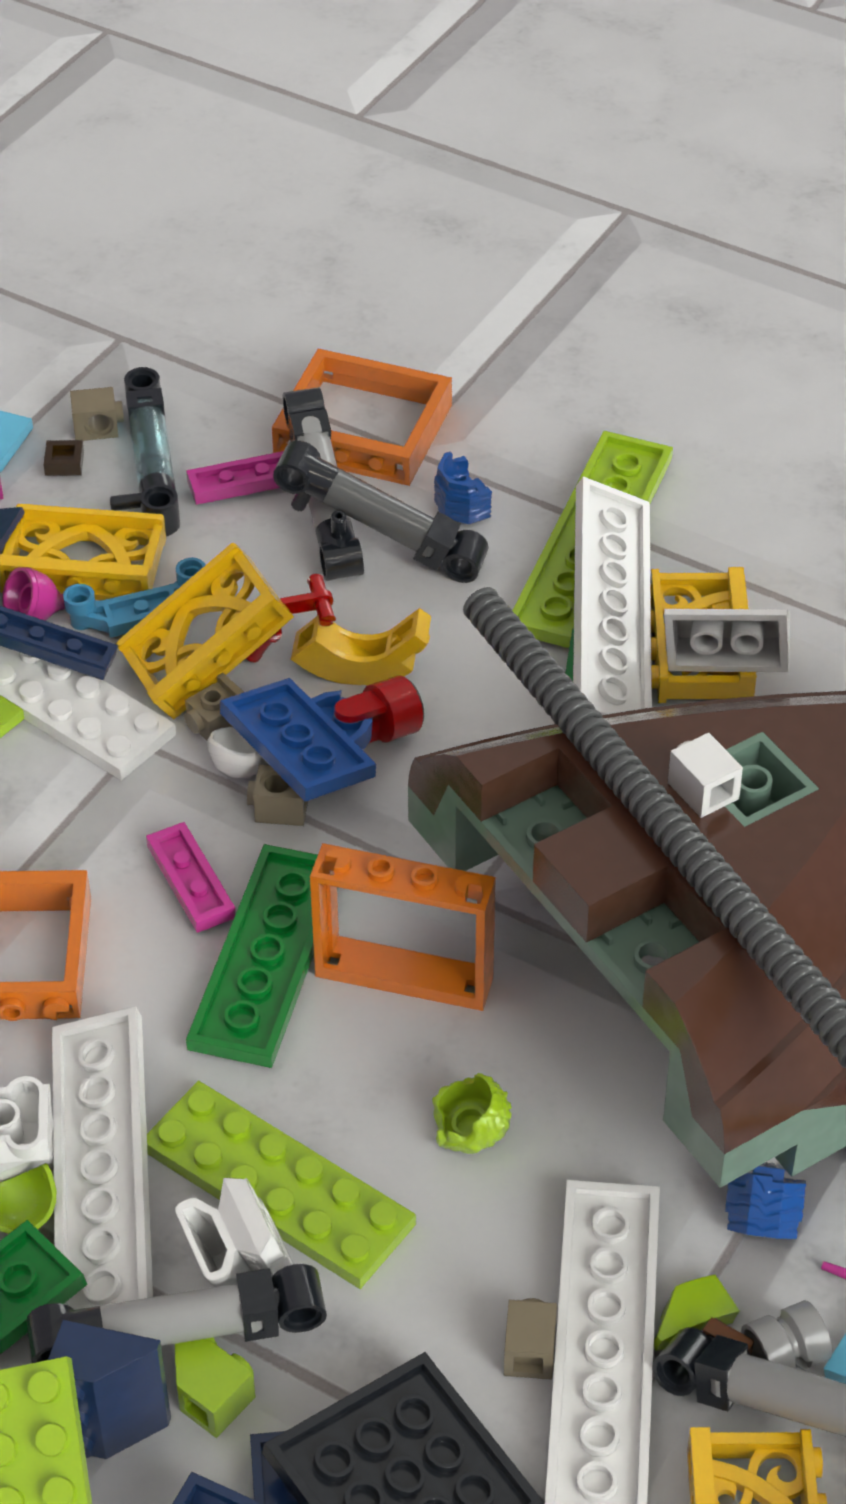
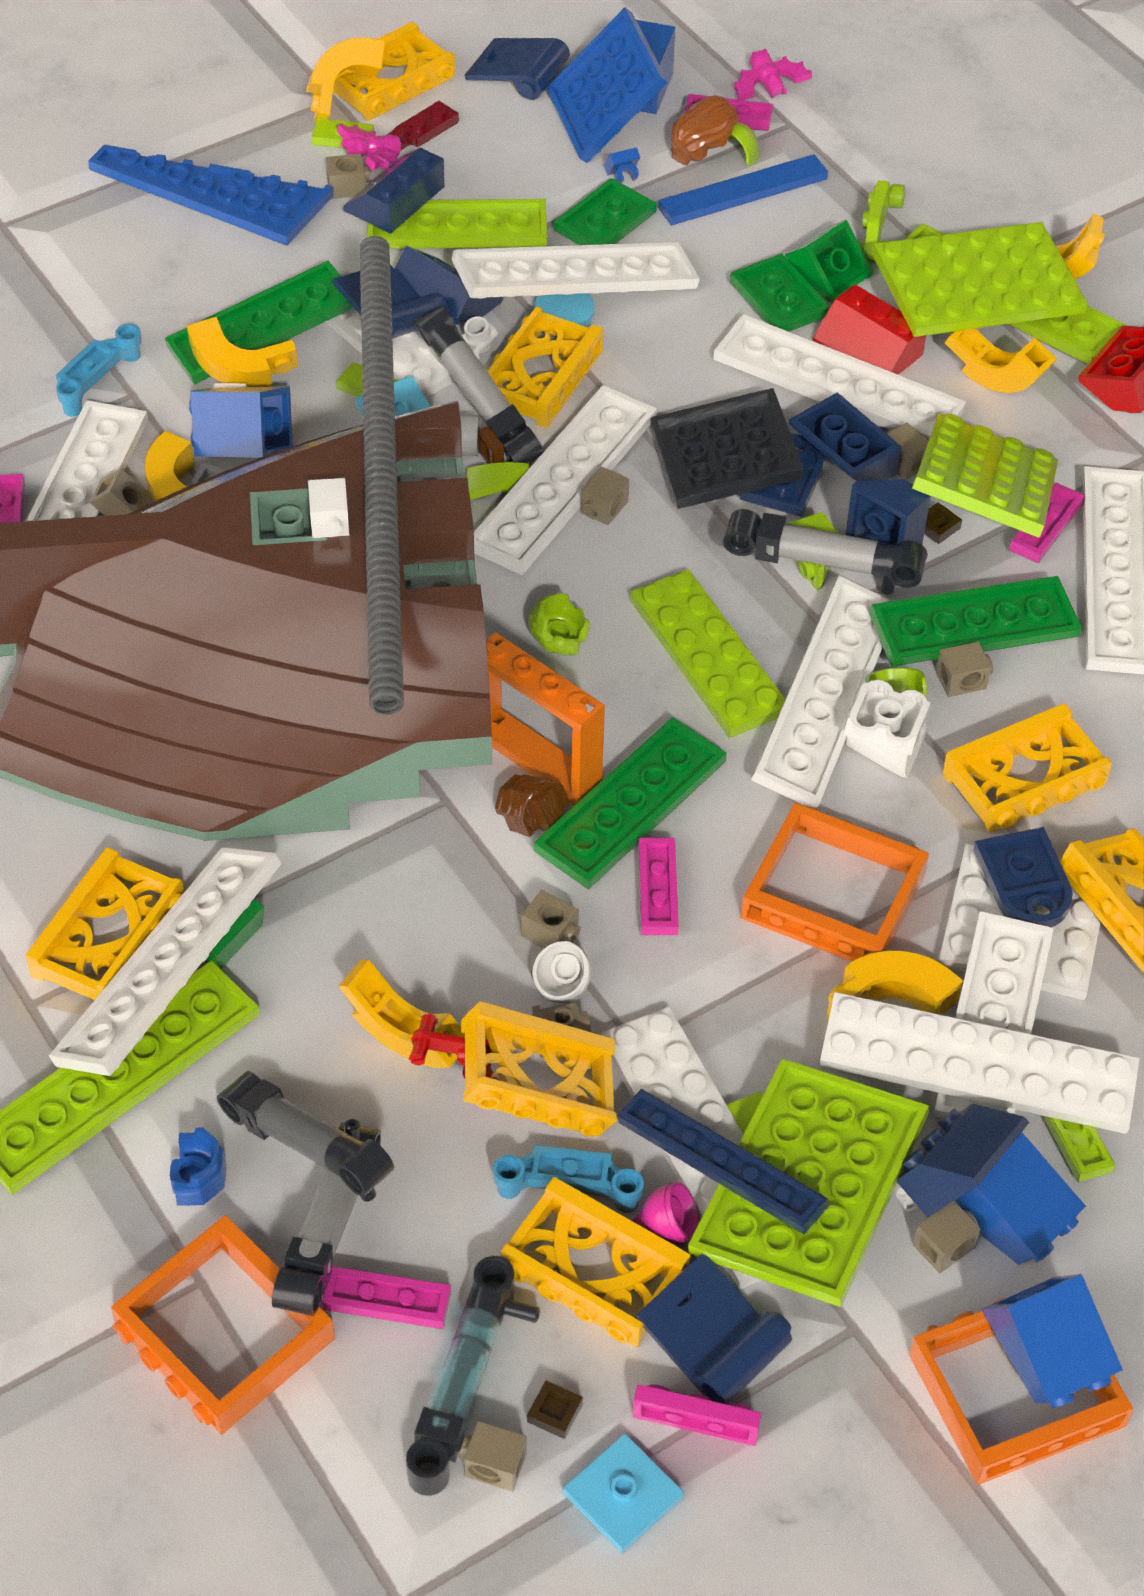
camera: 155 degrees left, 5 degrees up
(235, 1236) = (762, 584): white piece -> none
(321, 739) = (501, 935): blue plate -> none
(369, 913) = (531, 803): none -> reddish brown hair
(727, 640) = (110, 857): white slope -> none

